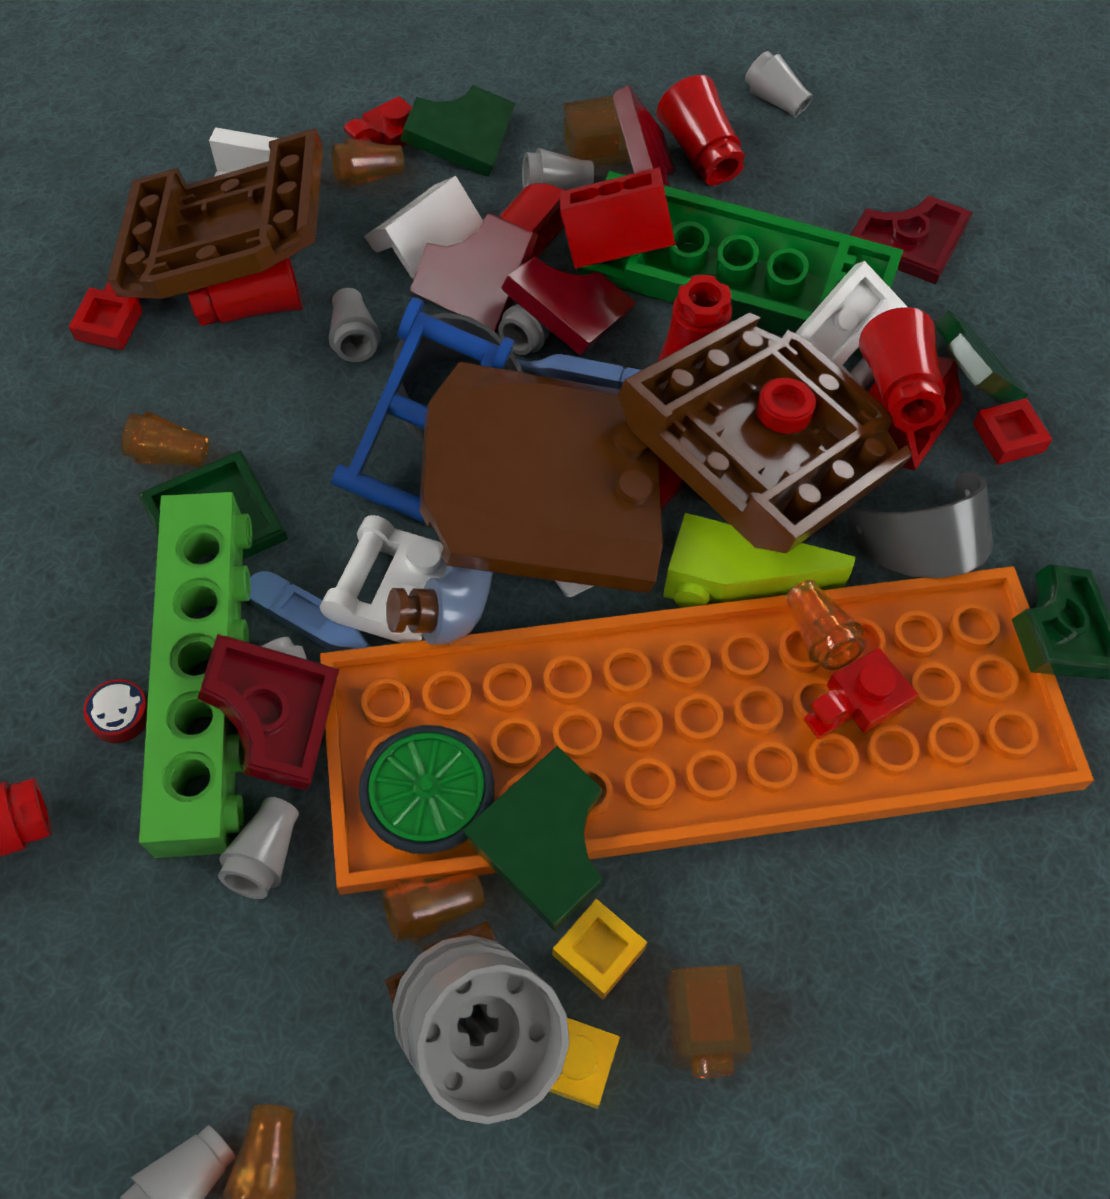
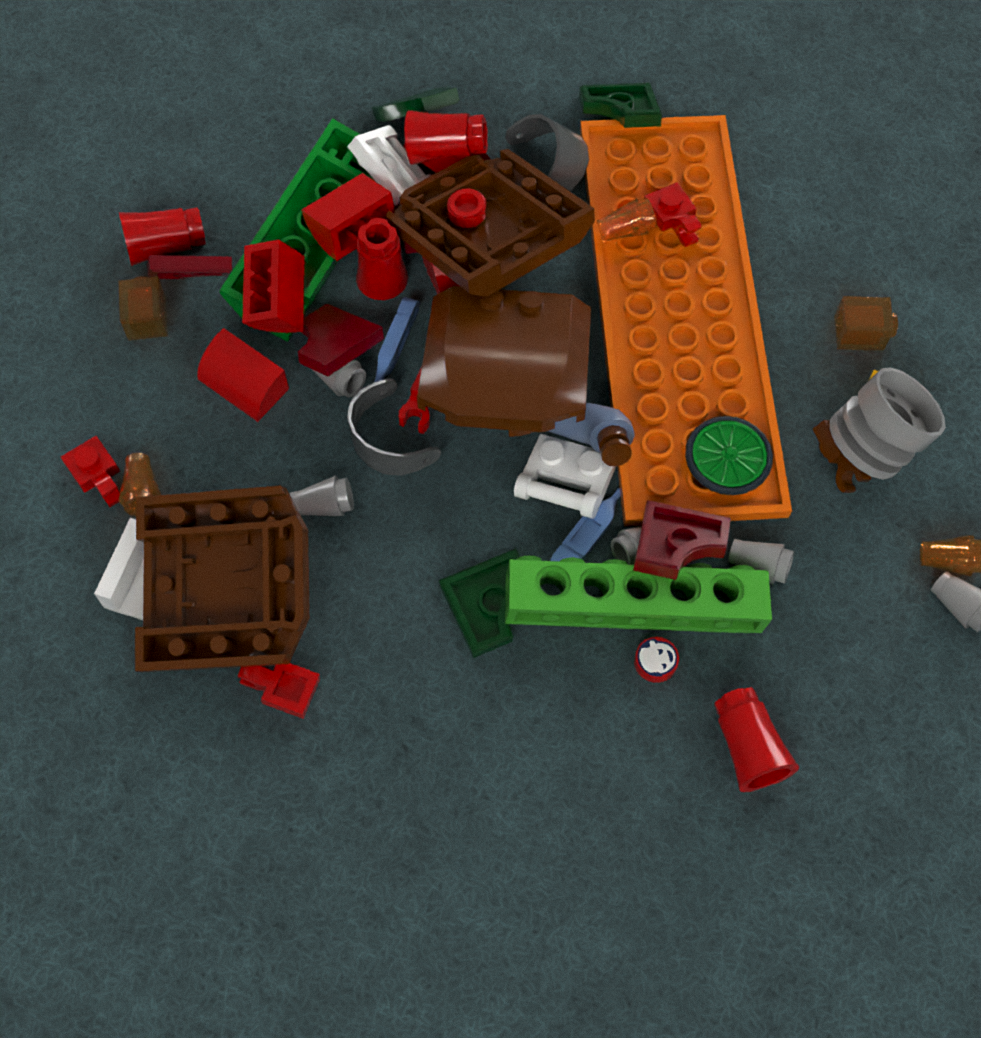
camera: 85 degrees left, 5 degrees up
(162, 442) = (426, 638): clear orange cone -> none
(412, 328) = (368, 431): blue piece -> none
(430, 903) = (801, 465): clear orange cone -> none
(437, 216) = (220, 443): white panel -> none
(462, 129) = (116, 407): dark green tile -> none
(471, 273) = (294, 401): tile -> none
(538, 837) = (763, 392): dark green tile -> none
(556, 170) = (180, 347): light grey cone -> none
(599, 948) = (823, 374): yellow plate -> none
(720, 566) = (572, 272): lime slope -> none
(755, 275) = (339, 214): none -> red brick
(777, 84) = (109, 178): light grey cone -> none
(923, 233) = (286, 123): dark red tile -> none
(1012, 431) = (474, 99): red plate -> none

